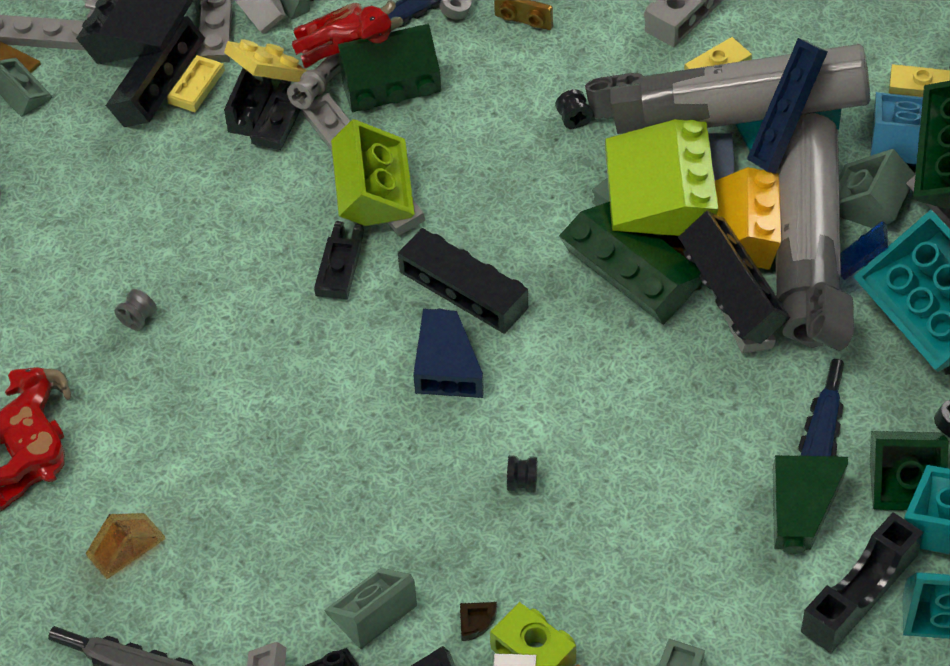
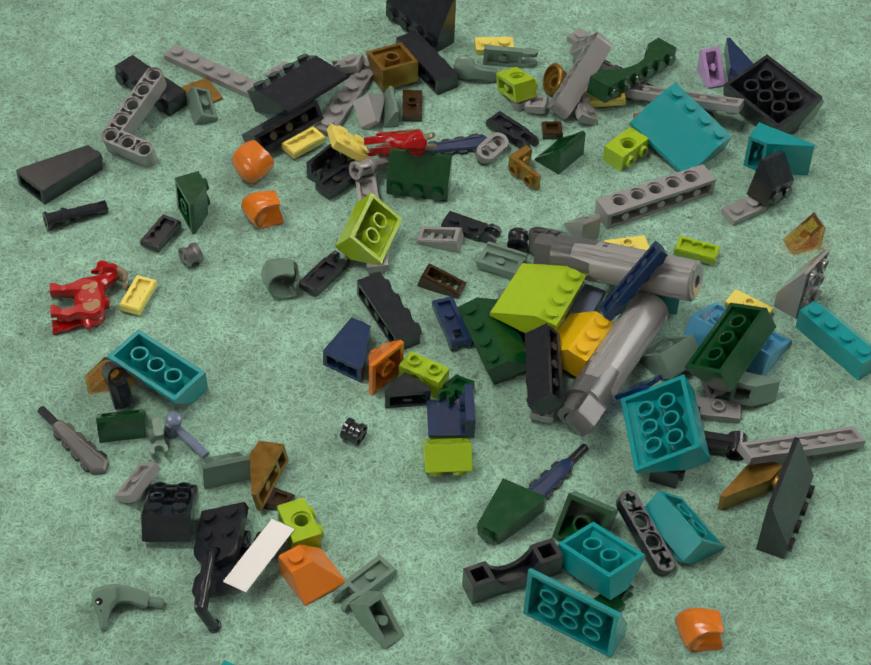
camera: 20 degrees right, 5 degrees down
(71, 295) = (160, 233): none -> black plate
(92, 227) = (192, 199): none -> dark green slope
(94, 400) = (138, 295): none -> light yellow plate
(144, 139) = (252, 162): none -> orange piece
(152, 548) = (117, 386): none -> black piece
(186, 604) = (121, 425): none -> dark green slope
(197, 497) = (160, 368): none -> teal slope
(198, 200) = (262, 209): none -> orange piece
(249, 598) = (156, 434): none -> sand green plate
(267, 576) = (173, 429): none -> sand blue piece
(276, 282) = (277, 270): none -> sand green piece
(437, 583) = (266, 467): none -> pearl gold slope
(479, 152) = (453, 234): none -> light grey slope
(489, 215) = (429, 281): none -> dark brown slope
(499, 116) = (472, 228): none -> black hinge
(505, 358) = (384, 364): none -> orange slope
(556, 260) = (451, 322): none -> dark blue plate
(562, 385) = (407, 392): none -> black slope
(568, 351) = (426, 371): none -> lime brick
(569, 145) = (501, 259): none -> sand green plate
(621, 351) = (453, 388): none -> dark green plate
(643, 393) = (452, 420): none -> dark blue bracket
(648, 55) = (585, 226): none -> light grey slope
(669, 453) = (447, 456): none -> lime slope
(815, 29) = (696, 250): none -> lime plate

